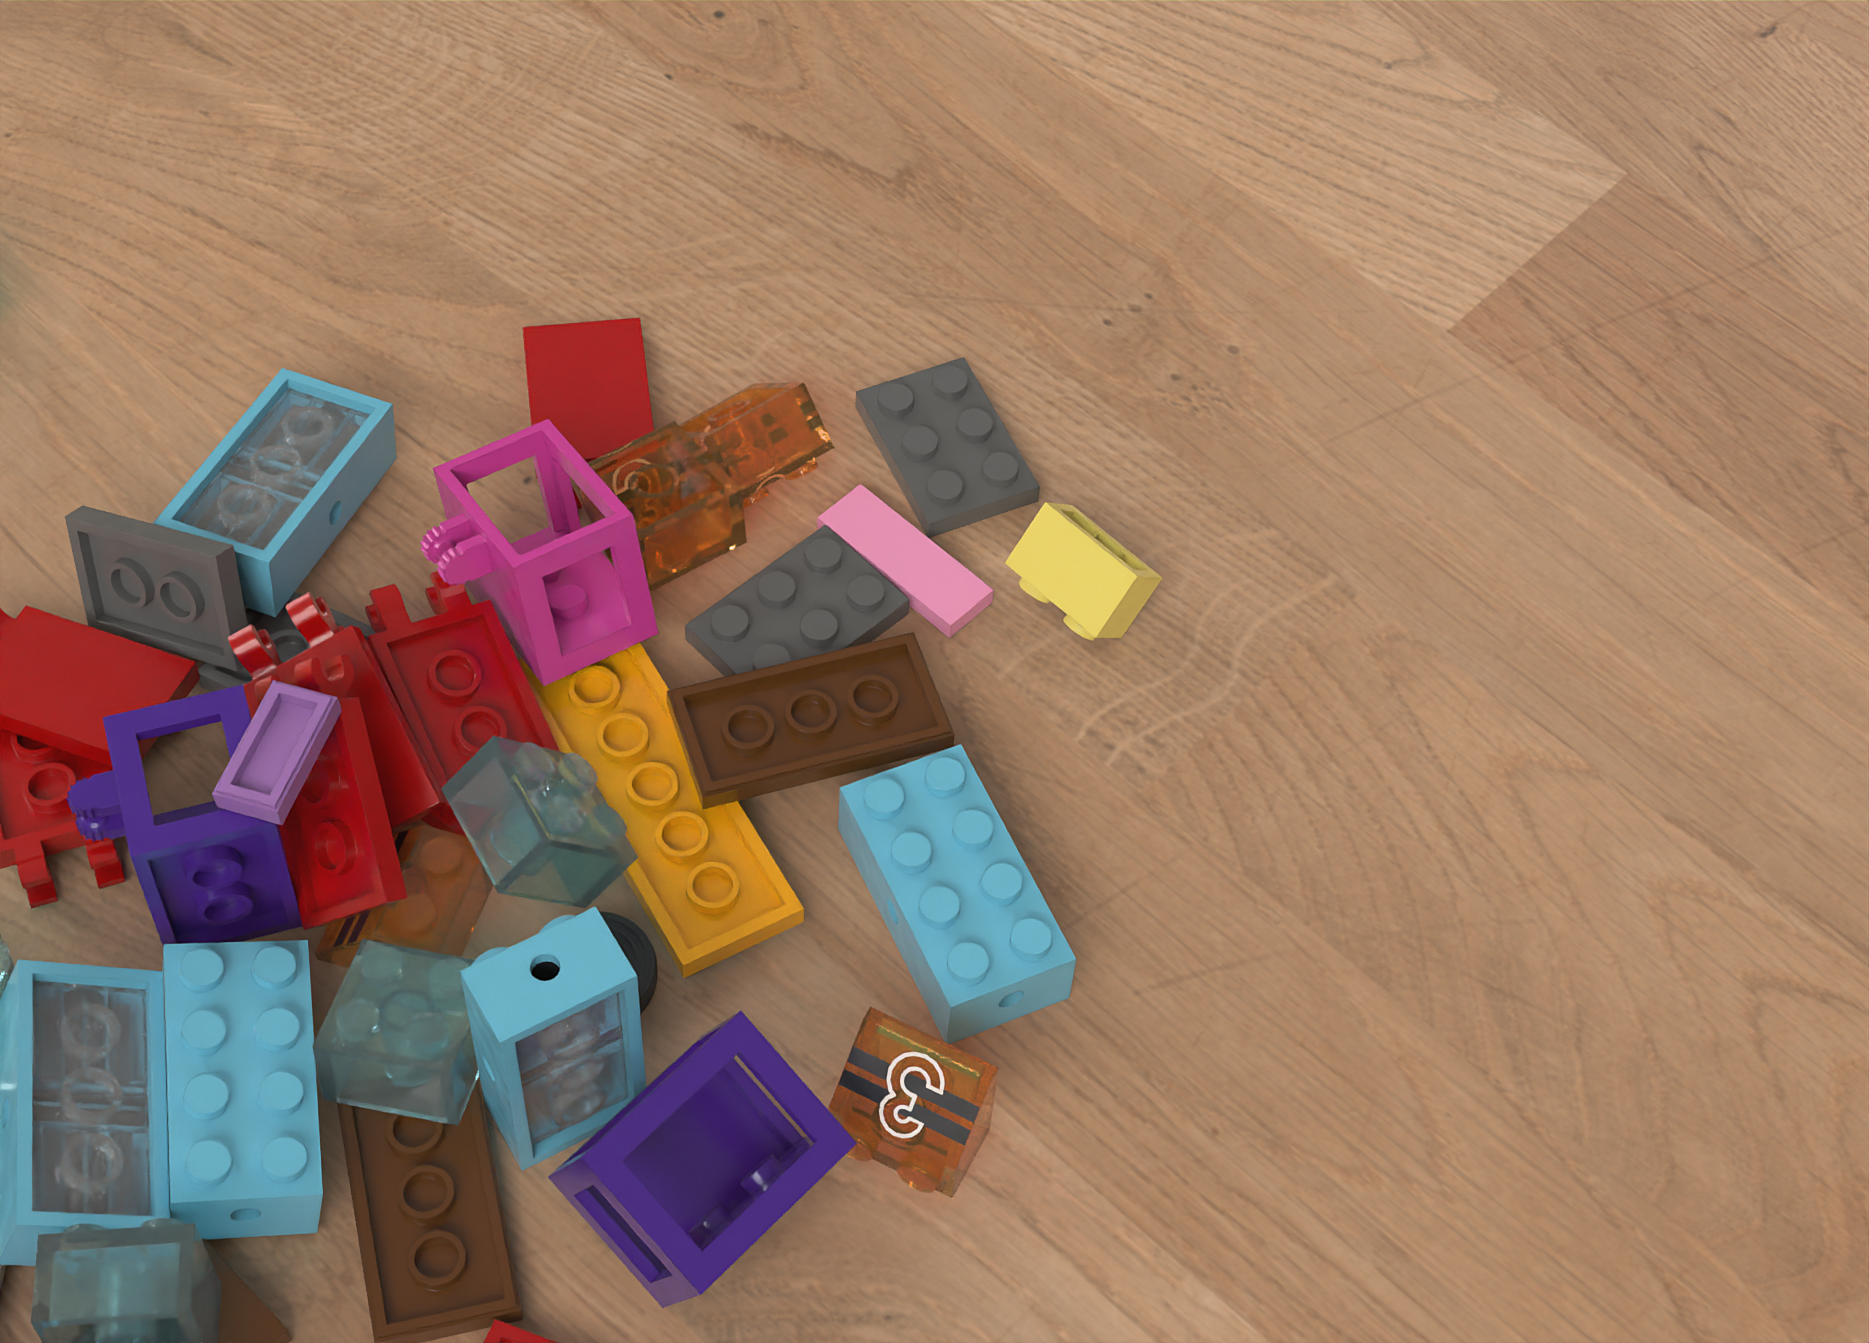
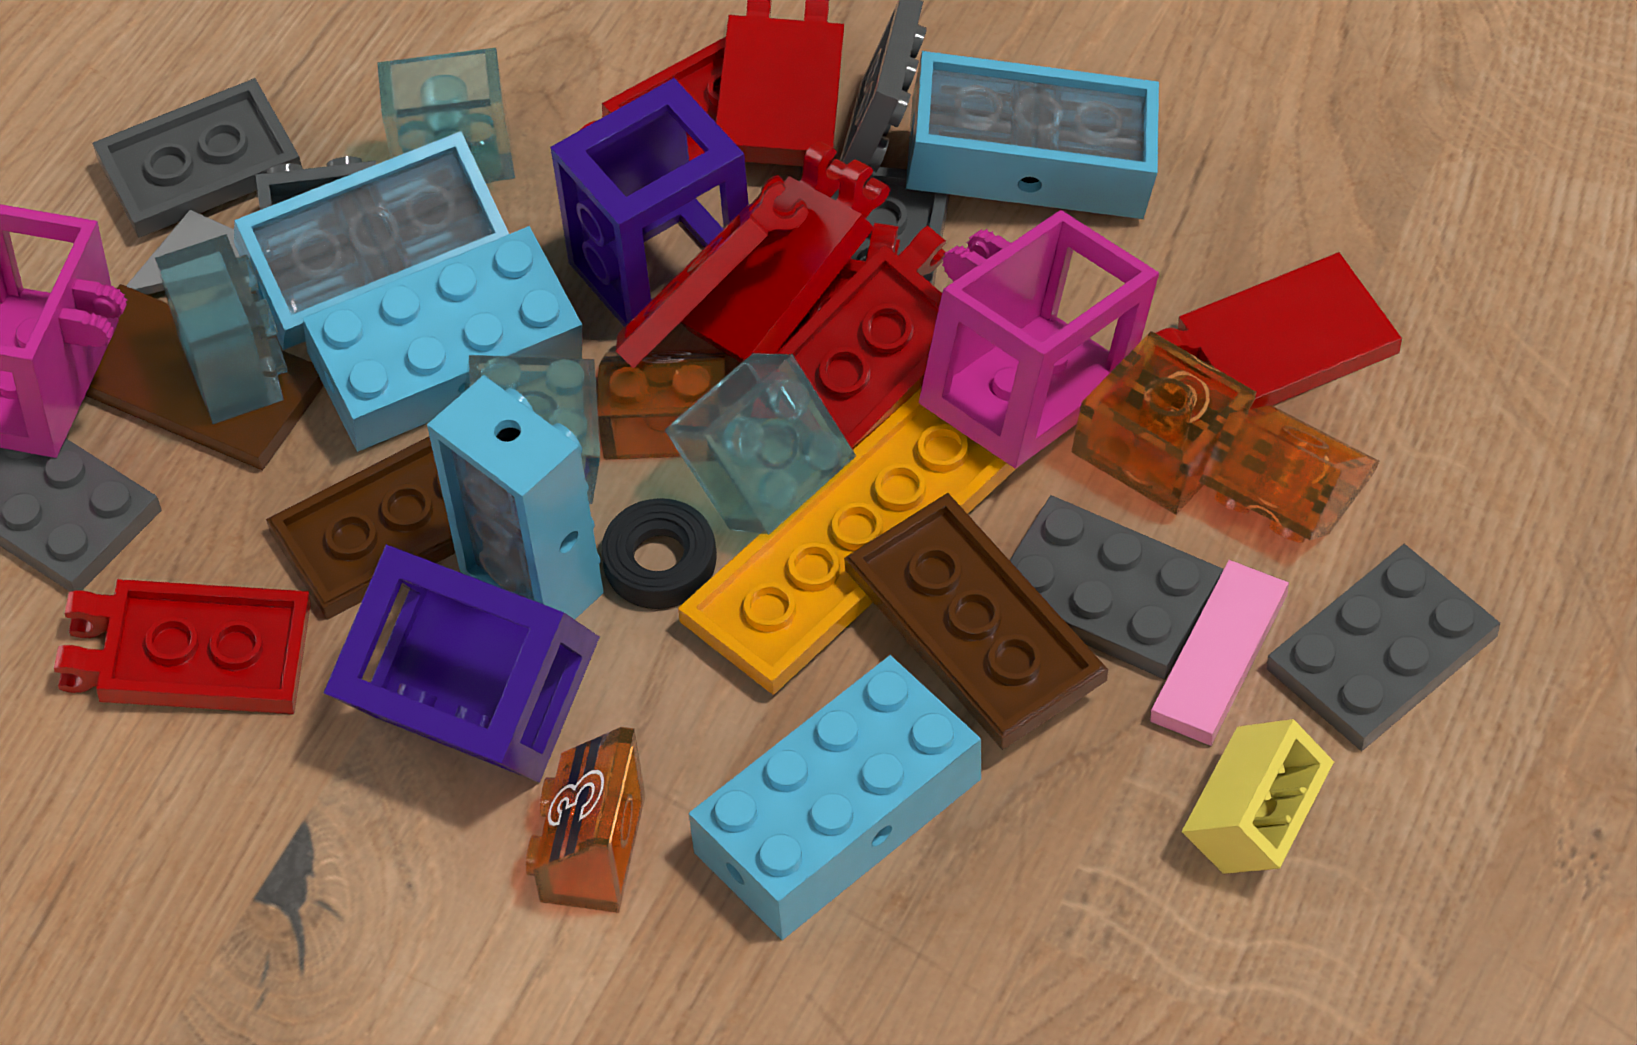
camera: 80 degrees right, 0 degrees up
(277, 752) = (679, 197): medium lavender tile -> none

